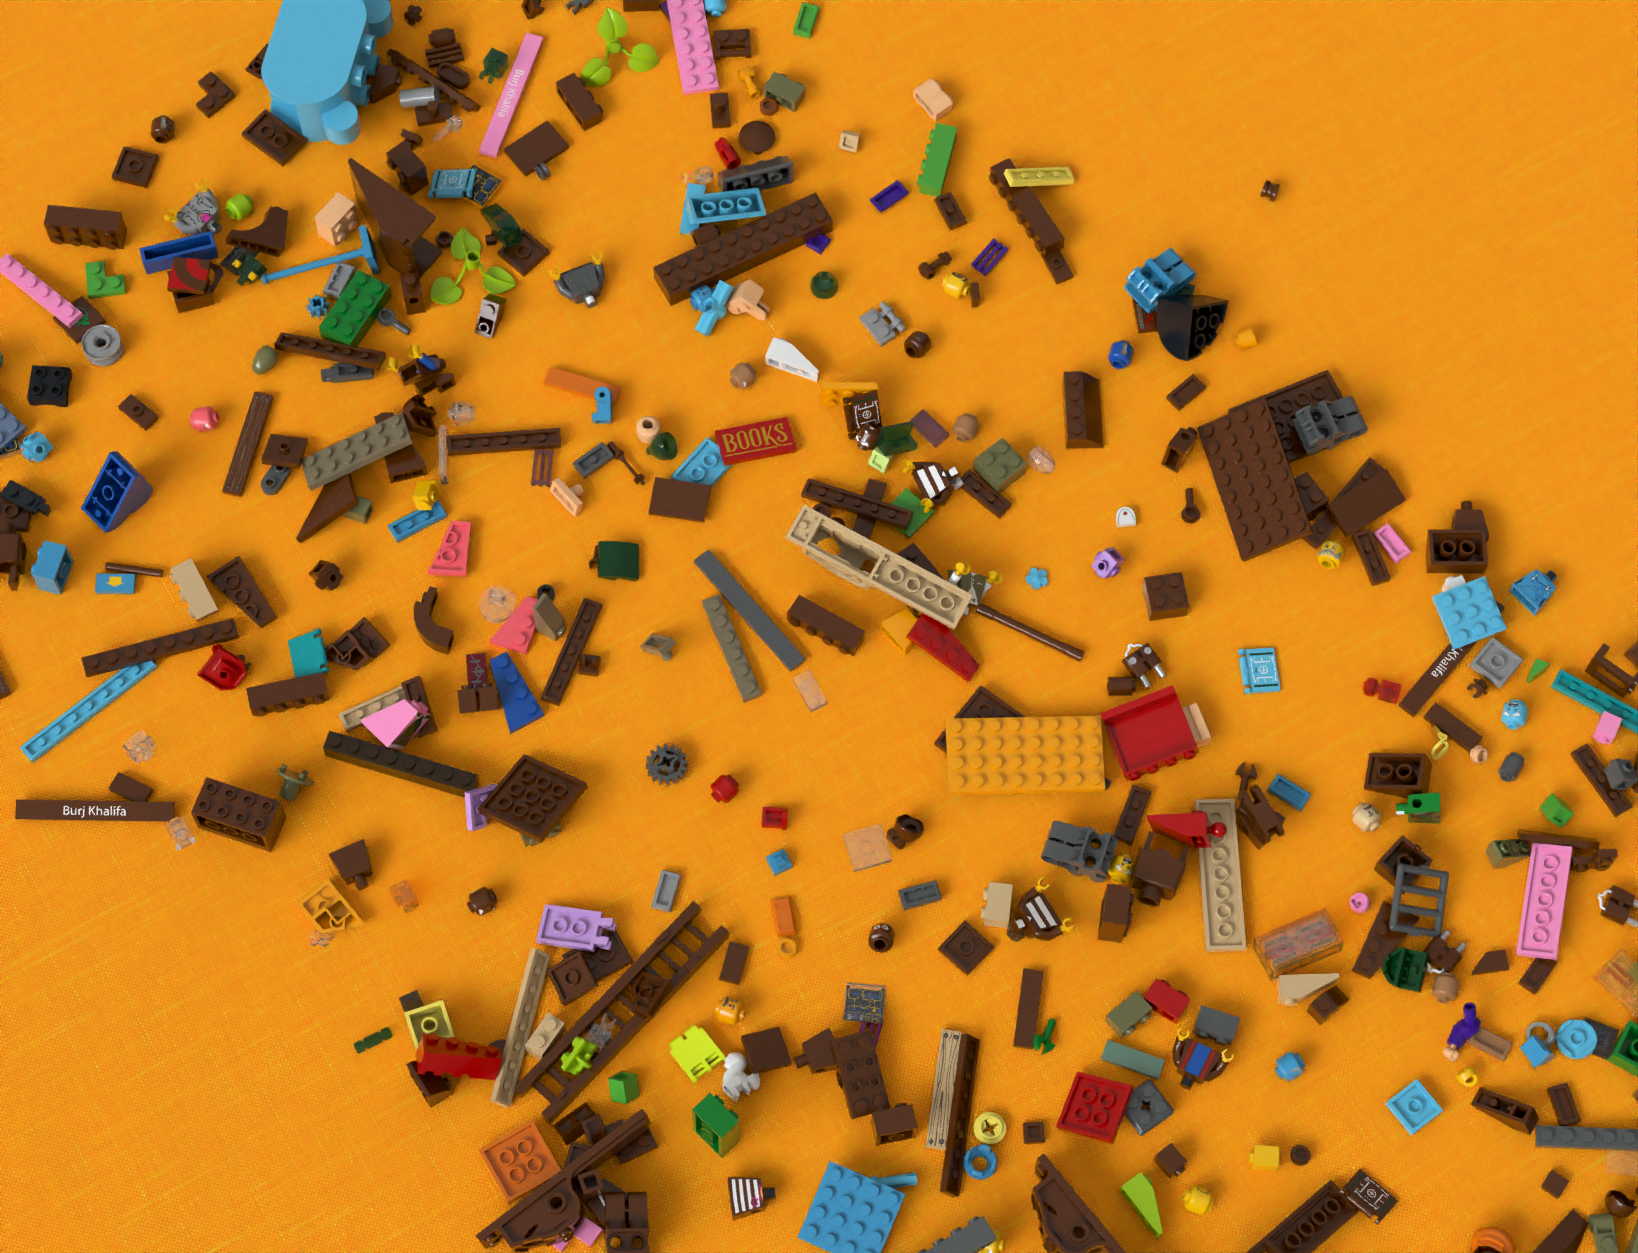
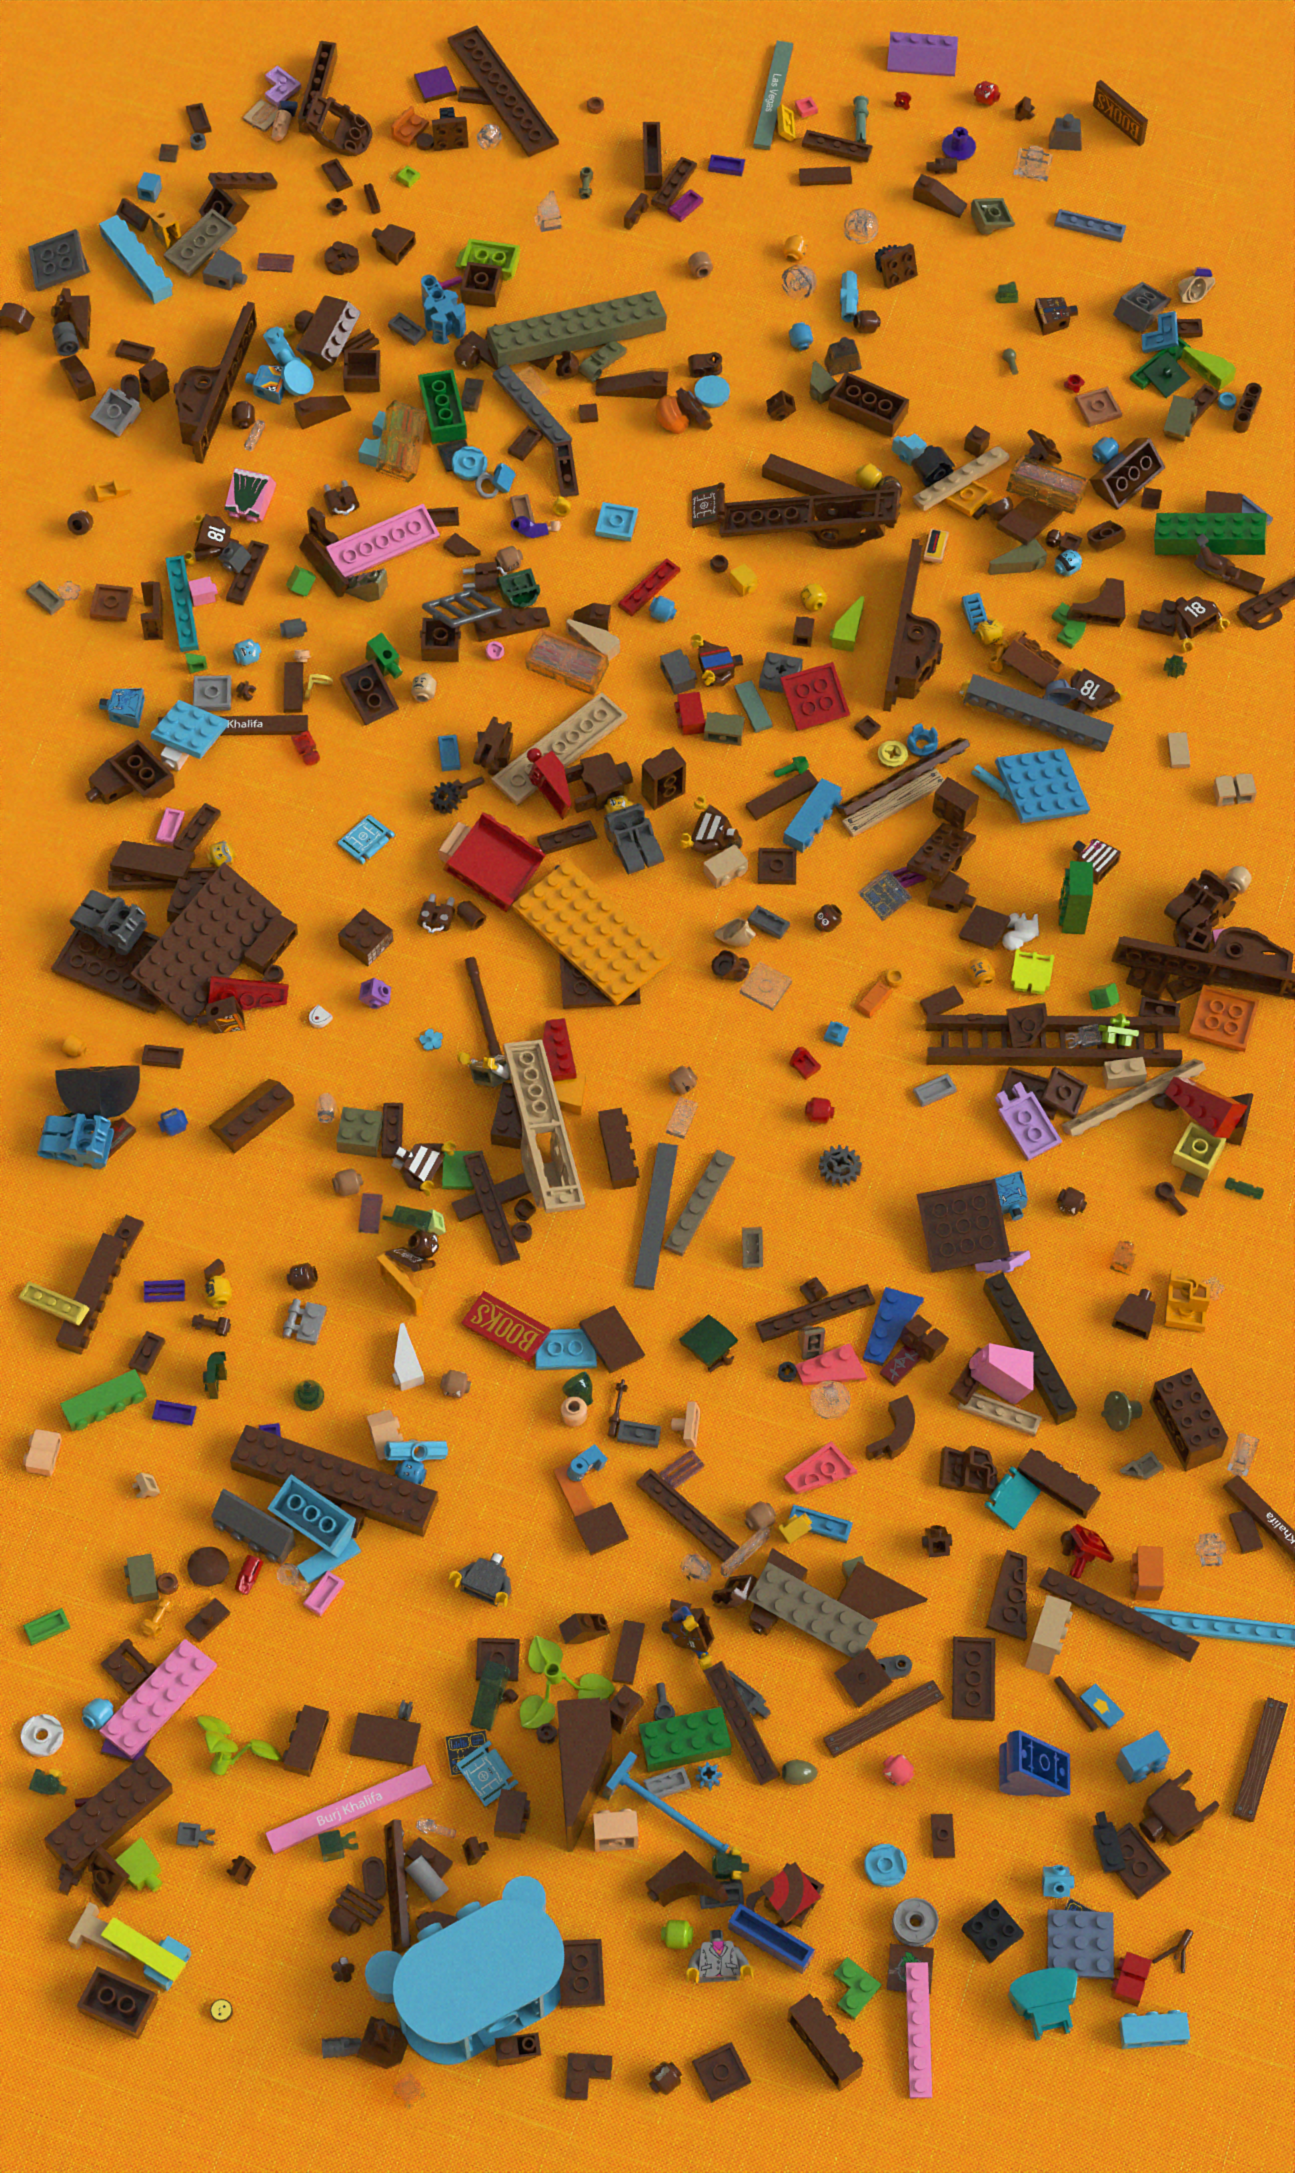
camera: 130 degrees left, 5 degrees down
(156, 363) = (885, 1865): none -> medium azure tile
(165, 686) = (1147, 1572): none -> orange brick
(216, 522) = (973, 1679): none -> reddish brown tile
(243, 764) = (1144, 1467): none -> dark tan slope
(425, 978) = (1165, 1192): none -> reddish brown plate
(449, 331) = (628, 1652): none -> reddish brown tile
(457, 482) = (759, 1515): none -> medium nougat head
(530, 861) = (1012, 1194): none -> dark azure torso
(548, 379) = (601, 1528): none -> reddish brown tile
(671, 188) = (324, 1593): none -> bright pink tile
(839, 716) = (682, 1080): none -> medium nougat head
(891, 231) = (215, 1372): none -> dark green slope
(929, 857) = (736, 933): none -> tan hat
(986, 1011) = (812, 815): none -> dark azure brick
(1193, 472) = (248, 992): none -> red wing
(1218, 529) = (270, 943): none -> reddish brown brick
(1243, 749) = (450, 802): none -> black gear
(1324, 1079) = (649, 587): none -> red tile

